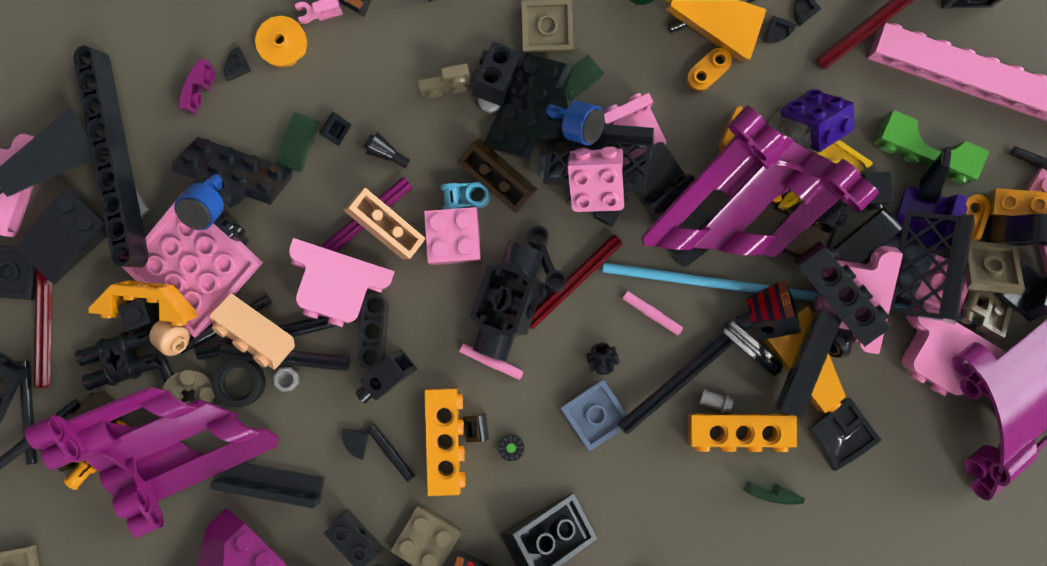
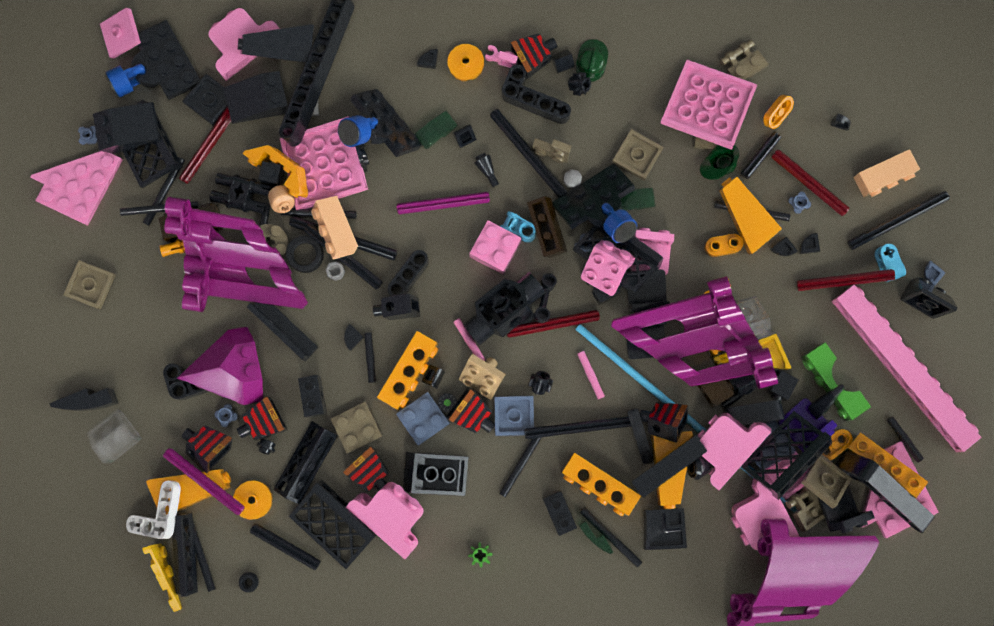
camera: 30 degrees right, 5 degrees down
(199, 79) = (400, 54): magenta slope -> none
(334, 282) = (404, 229): bright pink brick -> none
(384, 224) = (457, 212): light nougat brick -> none
(391, 31) = (538, 98): none -> black beam
(421, 103) = (528, 153): none -> black axle
(495, 483) = (423, 418): none -> sand blue plate
(497, 74) = (590, 161): black brick -> none
(532, 393) = (482, 376): none -> tan plate
(545, 444) = (471, 413): none -> torso
(638, 481) = (519, 467): none -> black bar
(716, 401) = (596, 456): light grey pin -> none
(716, 492) = (559, 513): none -> black brick
(788, 480) = (611, 537): none -> black bar
(826, 114) = (778, 318): dark purple bracket -> none
(864, 327) = (717, 464): black brick -> none

